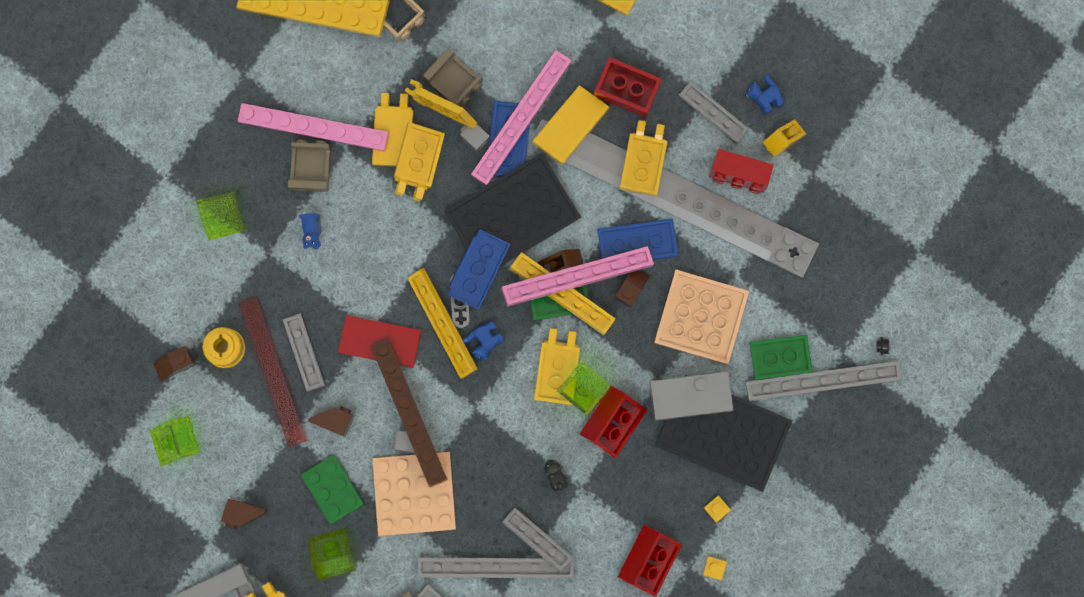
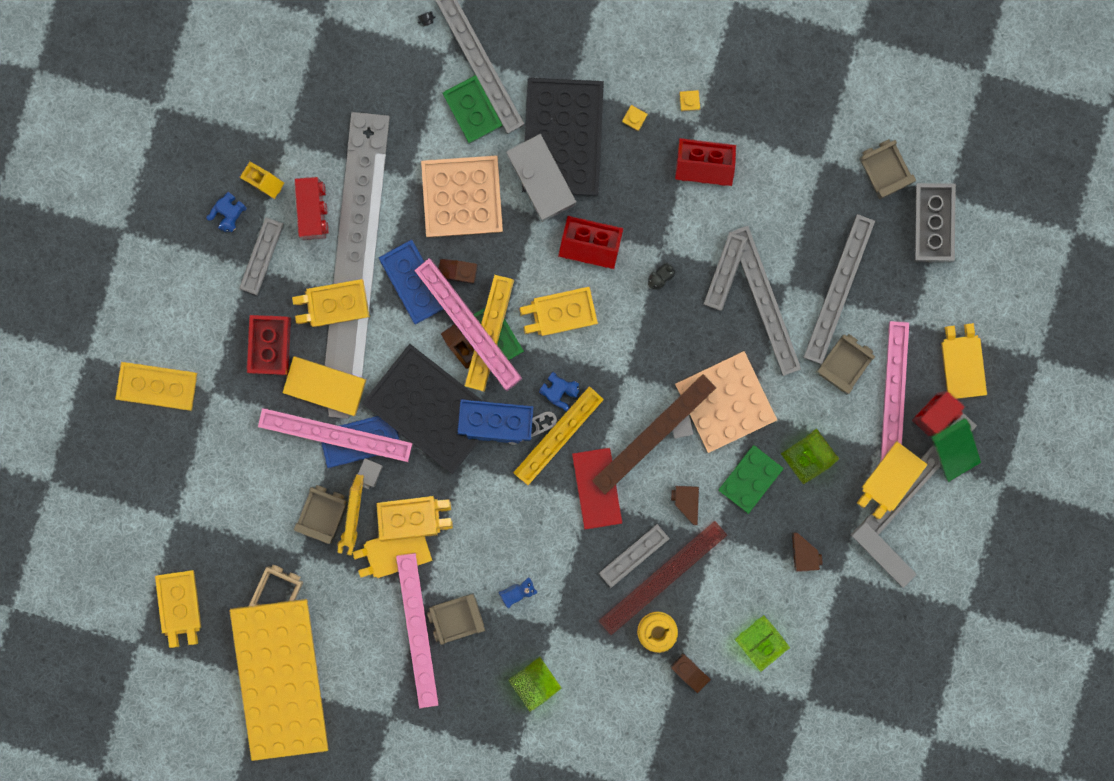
camera: 110 degrees left, 5 degrees up
(585, 388) = (570, 278): clear neon green slope -> none

